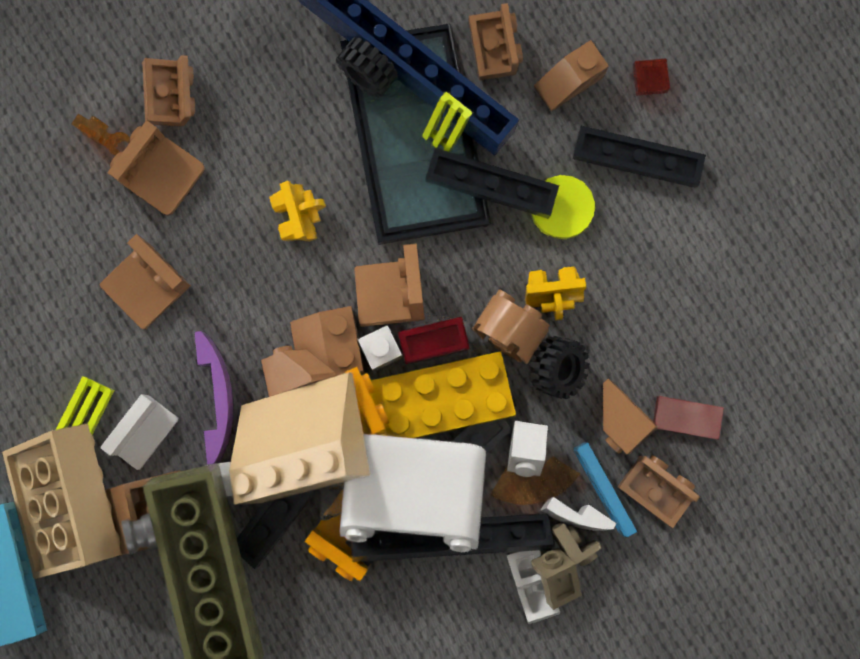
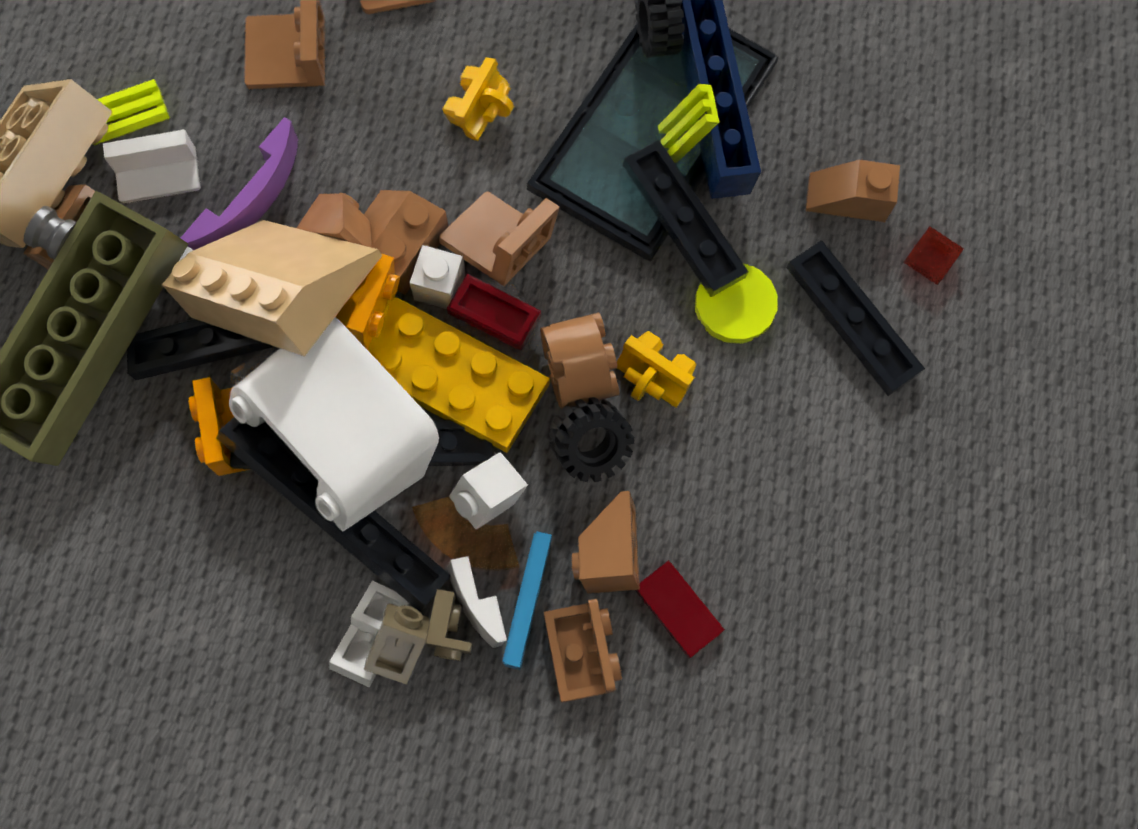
camera: 40 degrees right, 10 degrees down
(495, 44) = (802, 103): medium nougat bracket -> none

